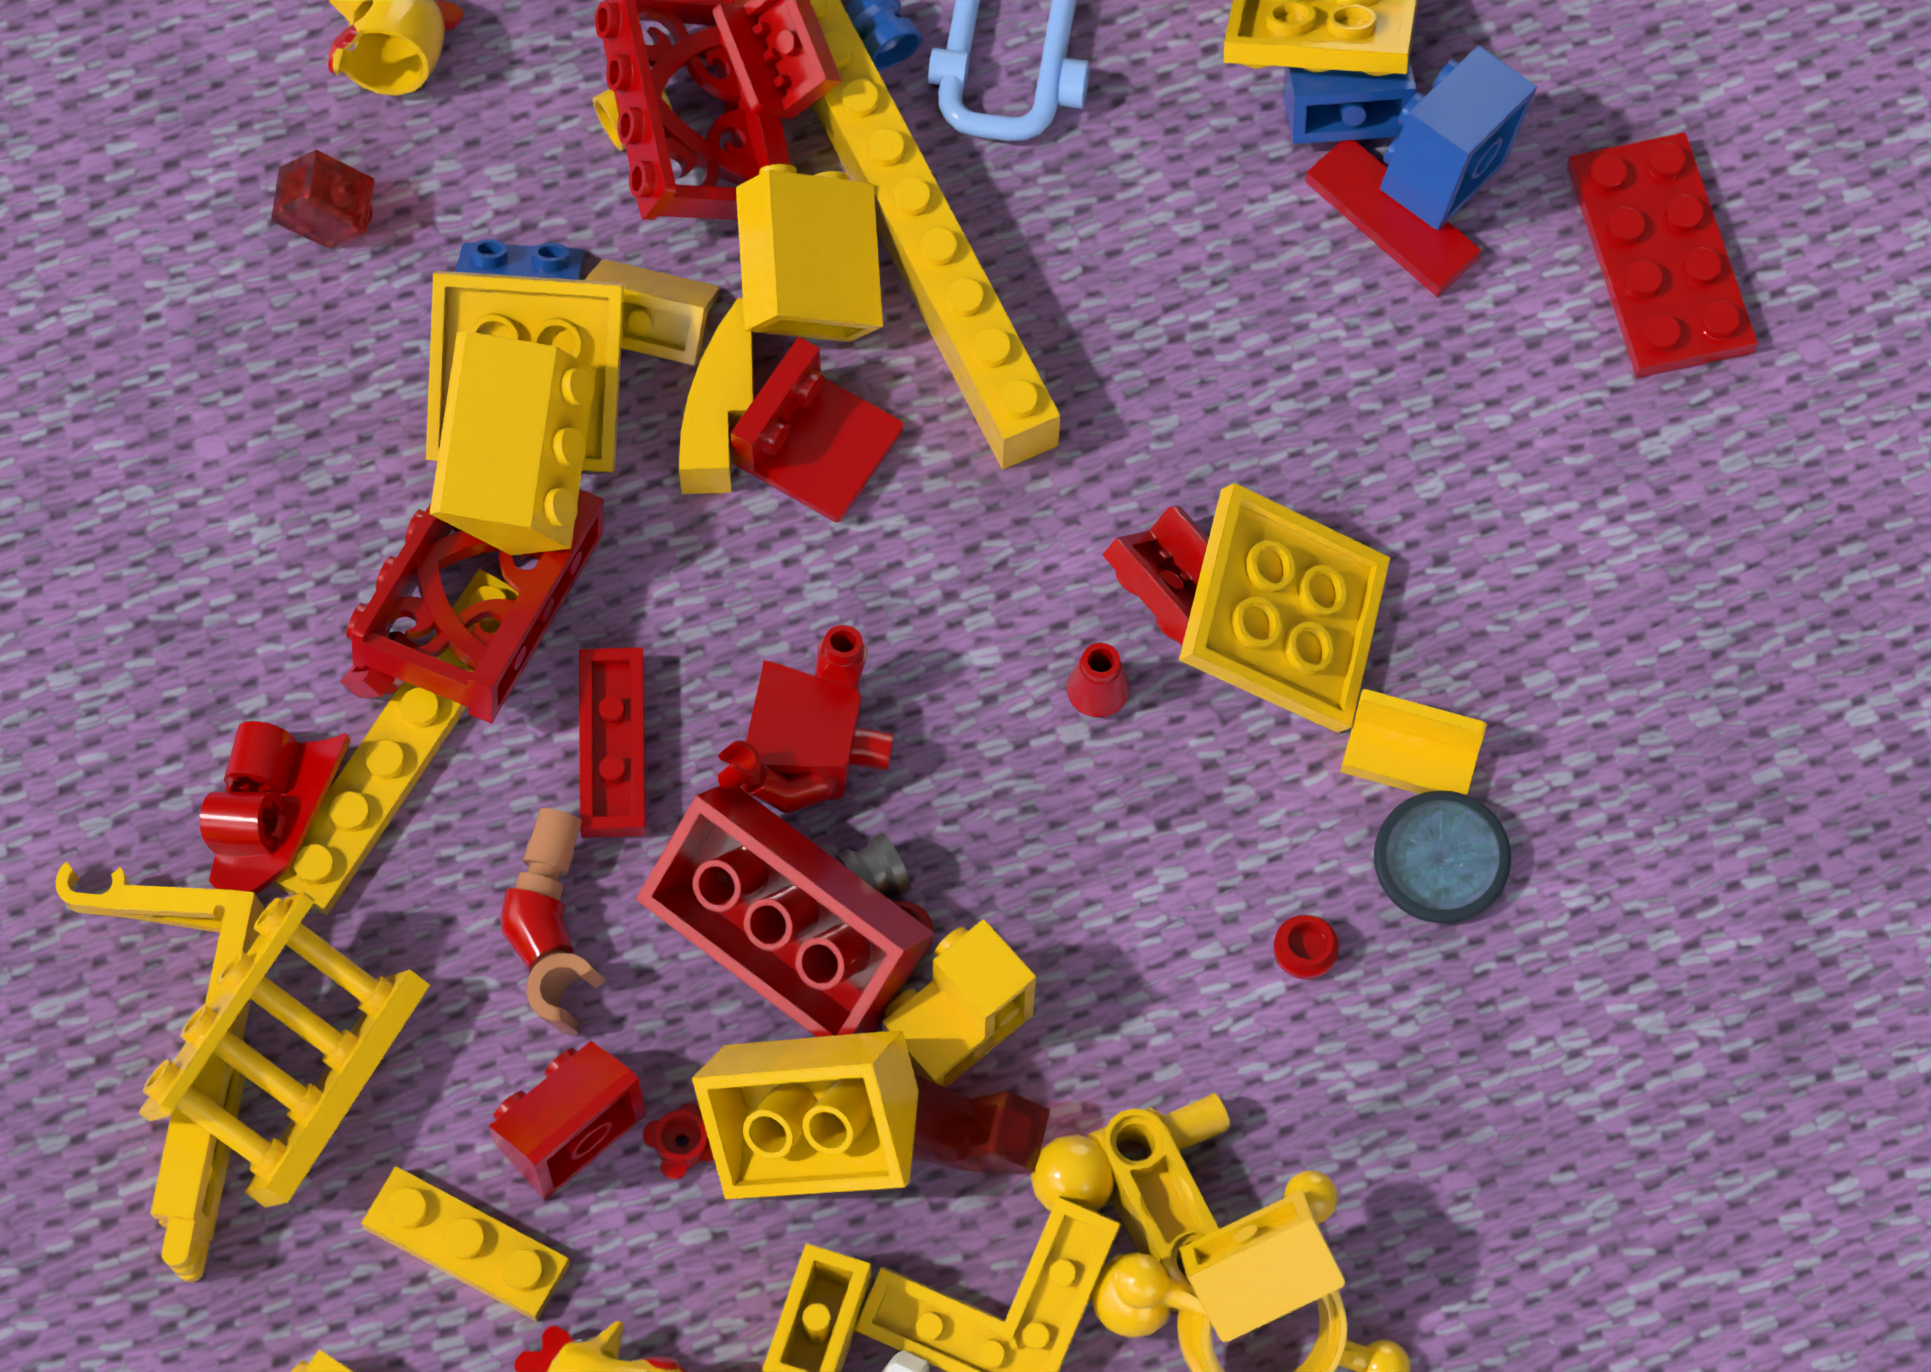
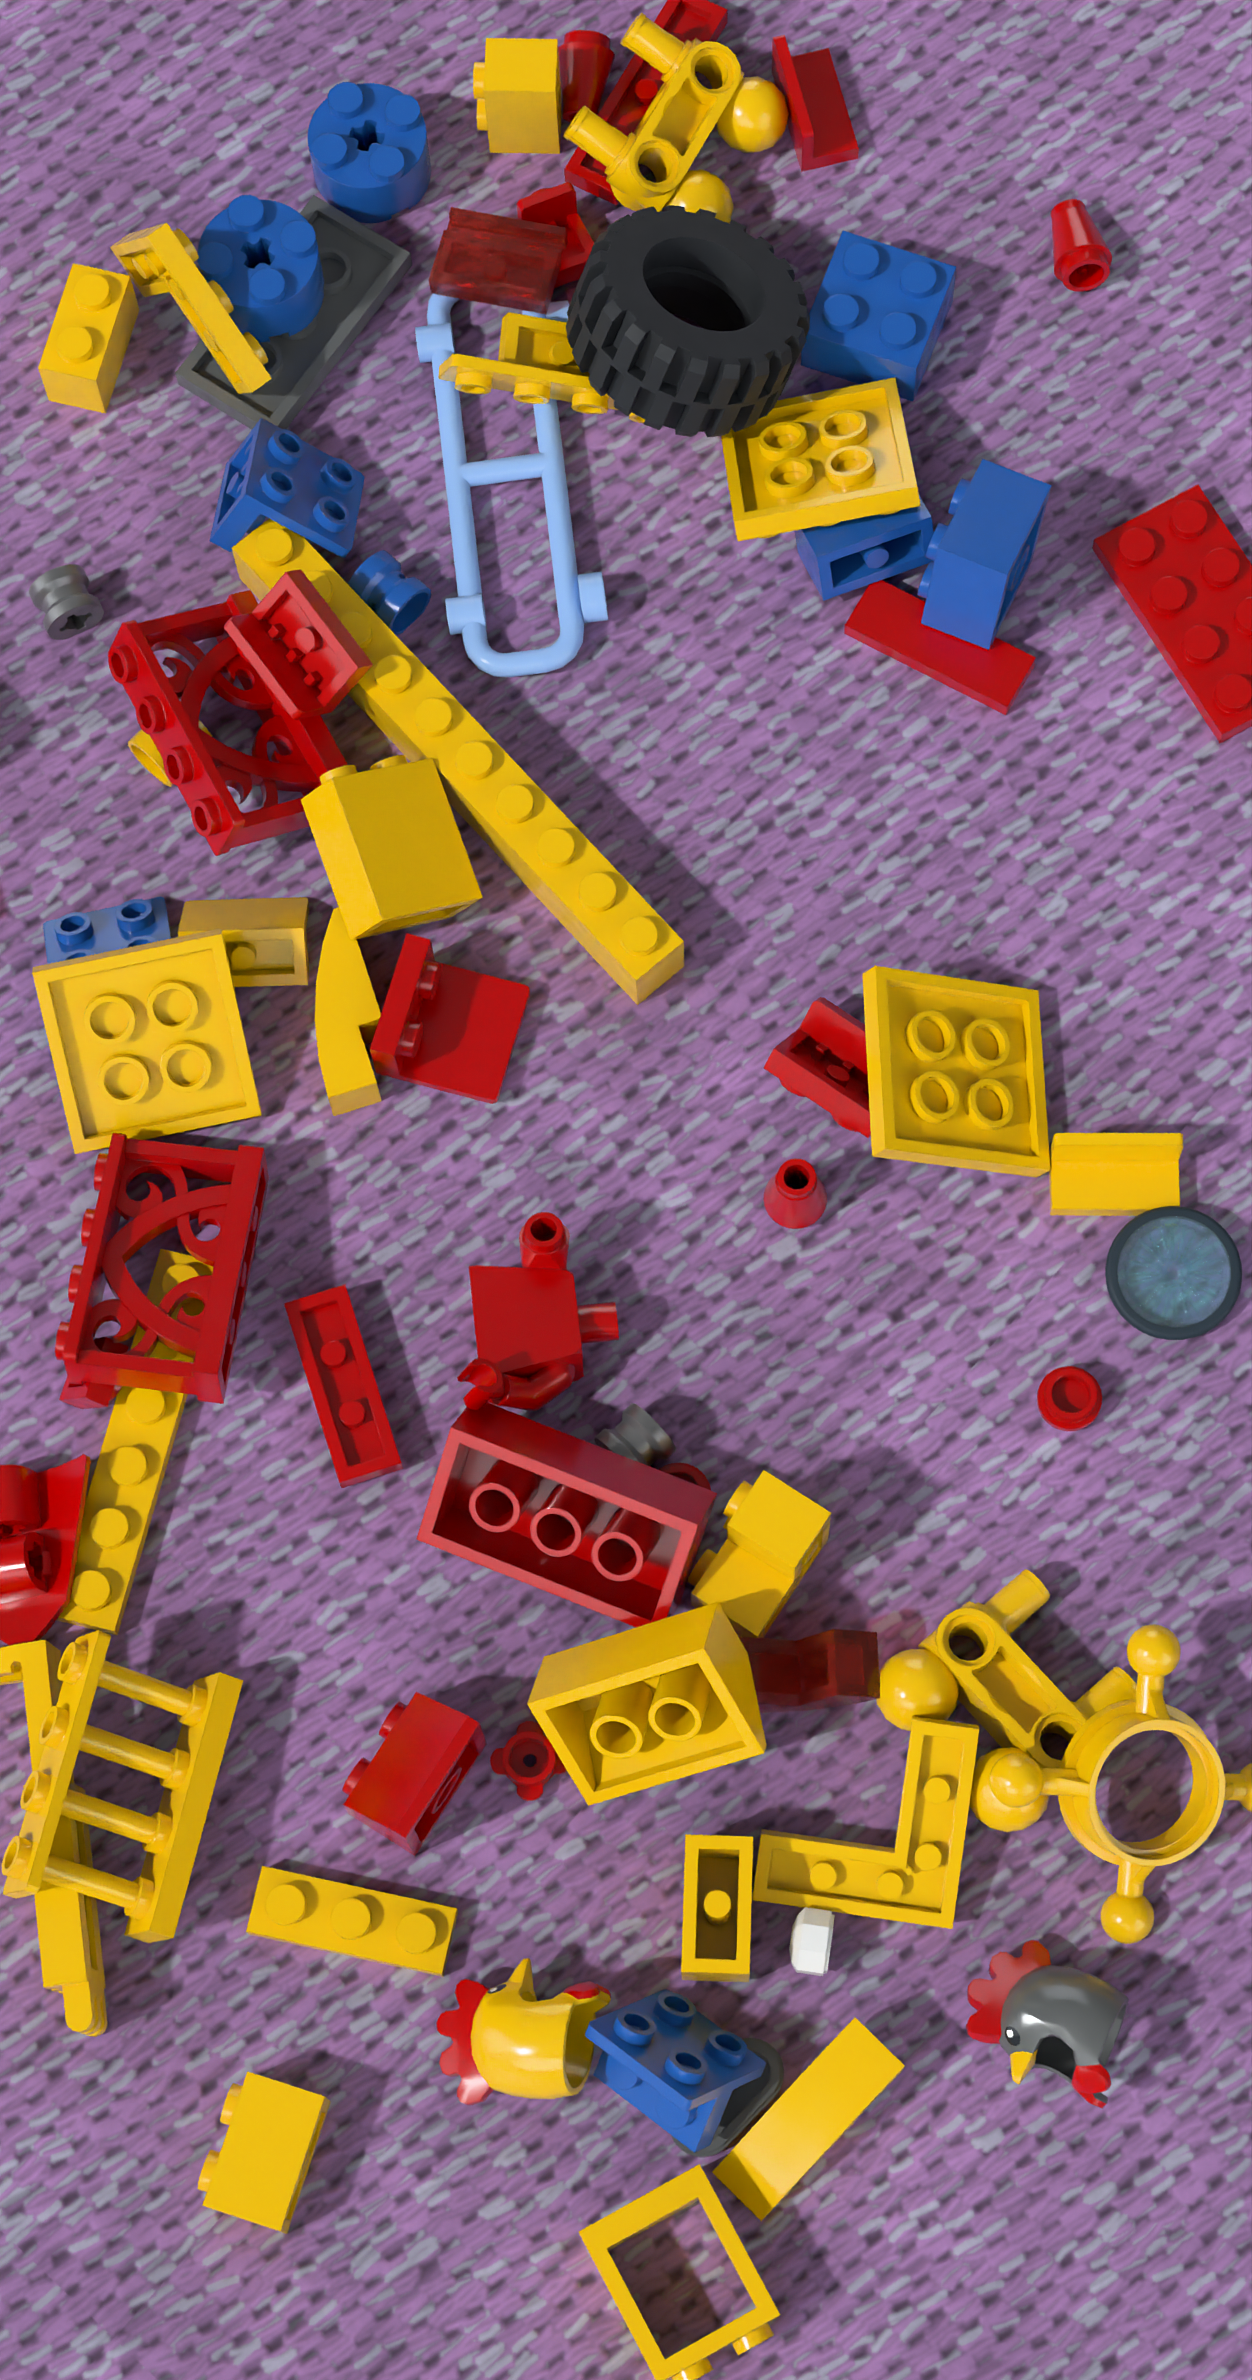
camera: 10 degrees left, 5 degrees up
(513, 443) = (164, 1122): yellow slope -> none
(535, 920) = (322, 1583): nougat piece -> none
(1261, 1267) = (1129, 1735): yellow panel -> none

